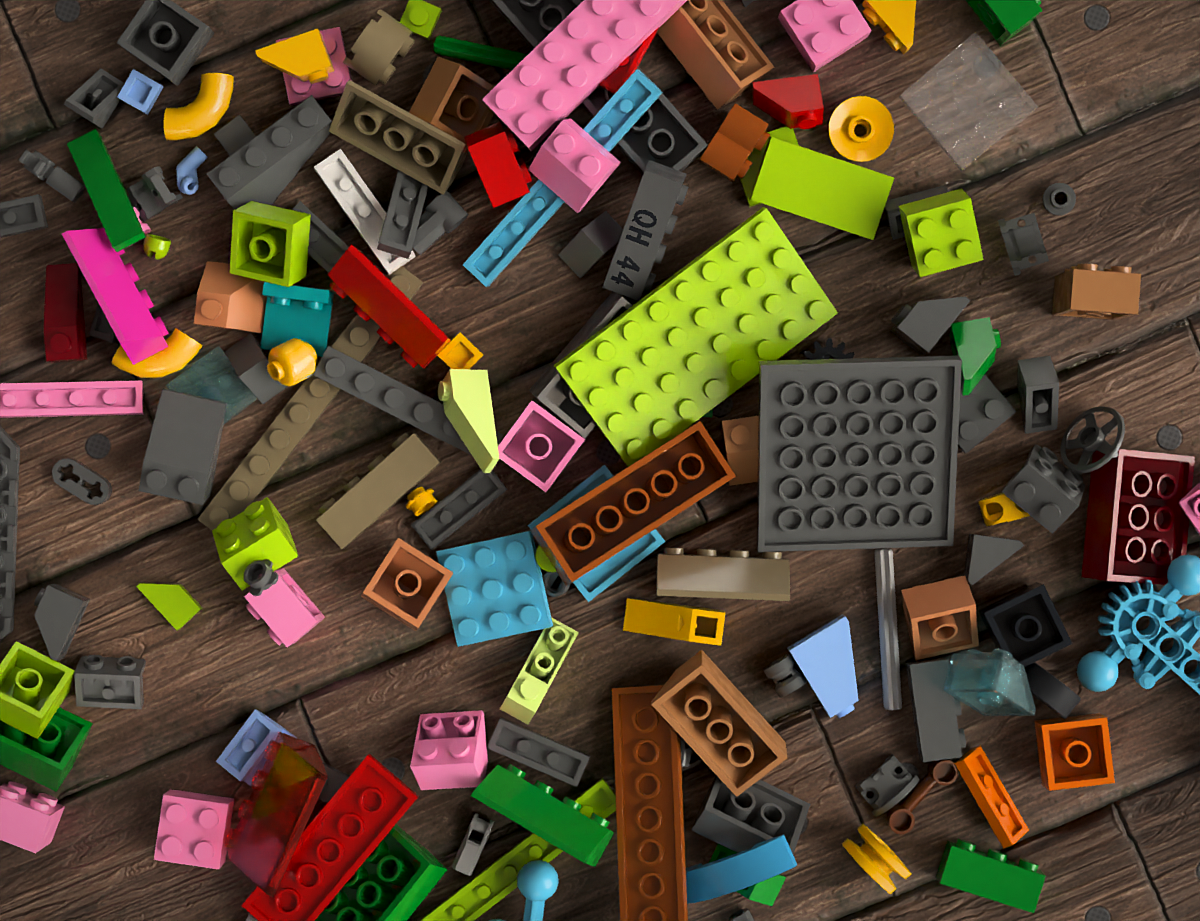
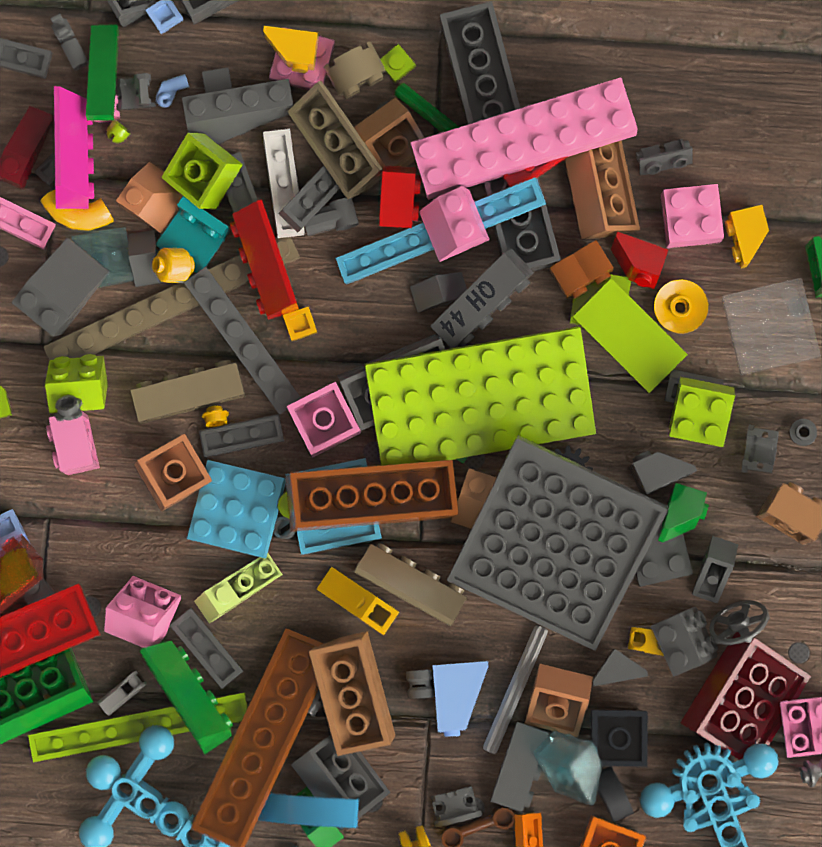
camera: 25 degrees right, 5 degrees down
(203, 111) = (202, 52): yellow cylinder -> none
(470, 411) = (285, 369): yellowish green slope -> none

